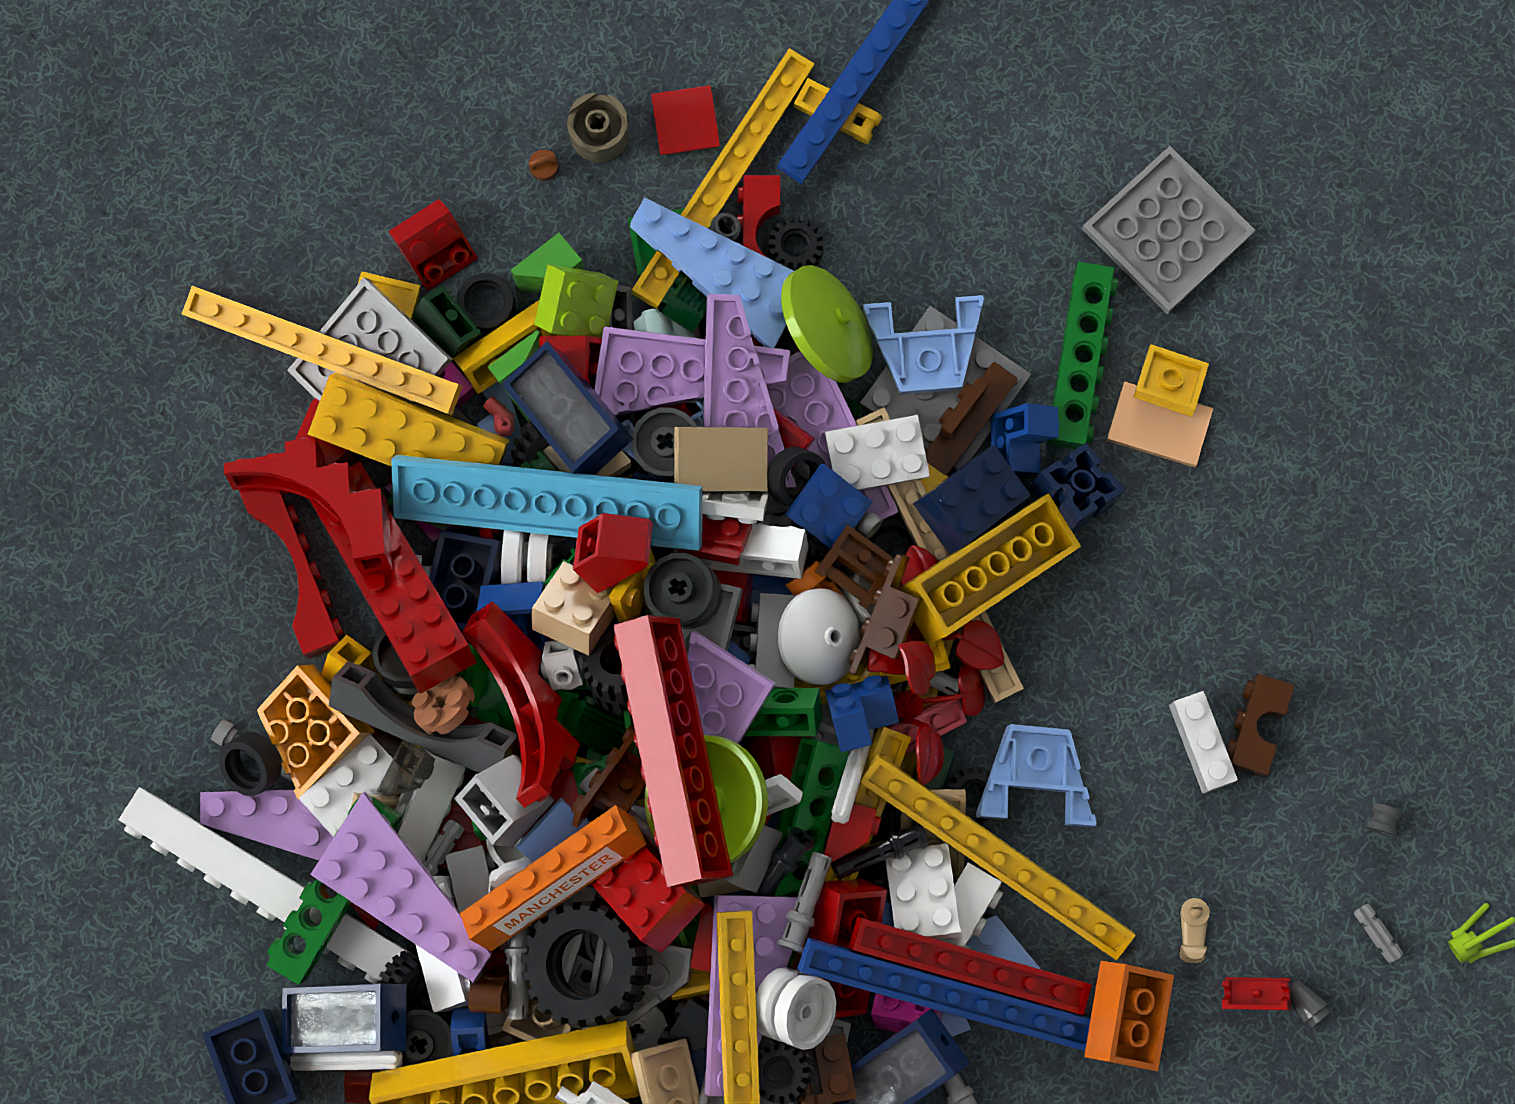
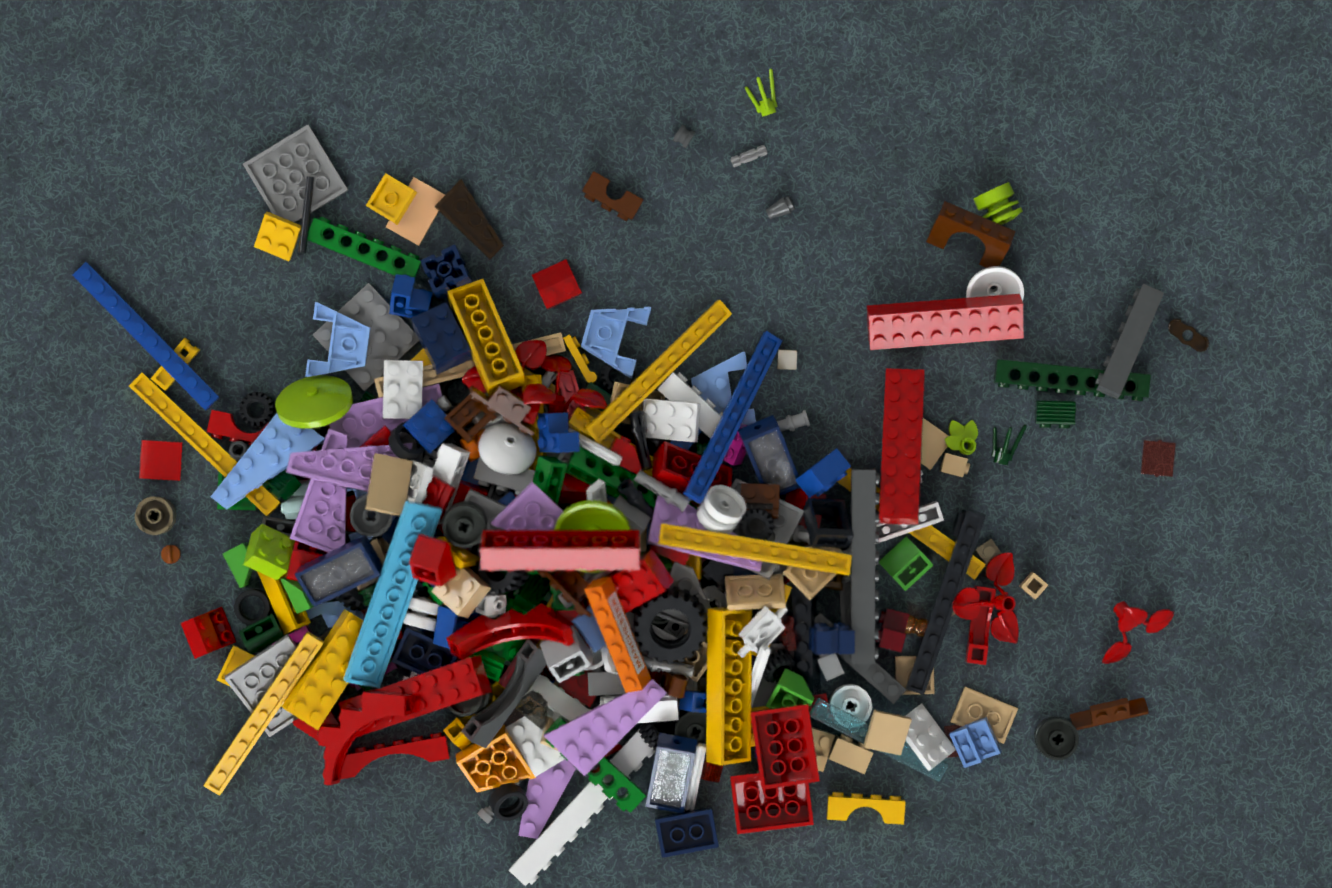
camera: 80 degrees left, 10 degrees up
(428, 712) = (510, 679): nougat plate -> none
(442, 846) = (582, 696): light grey axle -> none
(502, 416) = (328, 610): coral arm -> none
(969, 416) = (389, 327): reddish brown bracket -> none
(969, 966) = (718, 402): red plate -> none
(986, 730) = (581, 360): none -> yellow plate
(1063, 1067) = (787, 359): none -> slope
(1071, 221) = (278, 236): none -> yellow plate
(1096, 667) = (556, 284): none -> red slope
(1115, 254) = (306, 214): none -> black bar
(1129, 1015) = (765, 315): orange brick -> none
(1171, 502) = (463, 212): none -> dark brown wing
(1194, 923) = (722, 263): tan piece -> none
(1203, 742) = (615, 232): white brick -> none
(1256, 993) = (768, 236): red hinge -> none

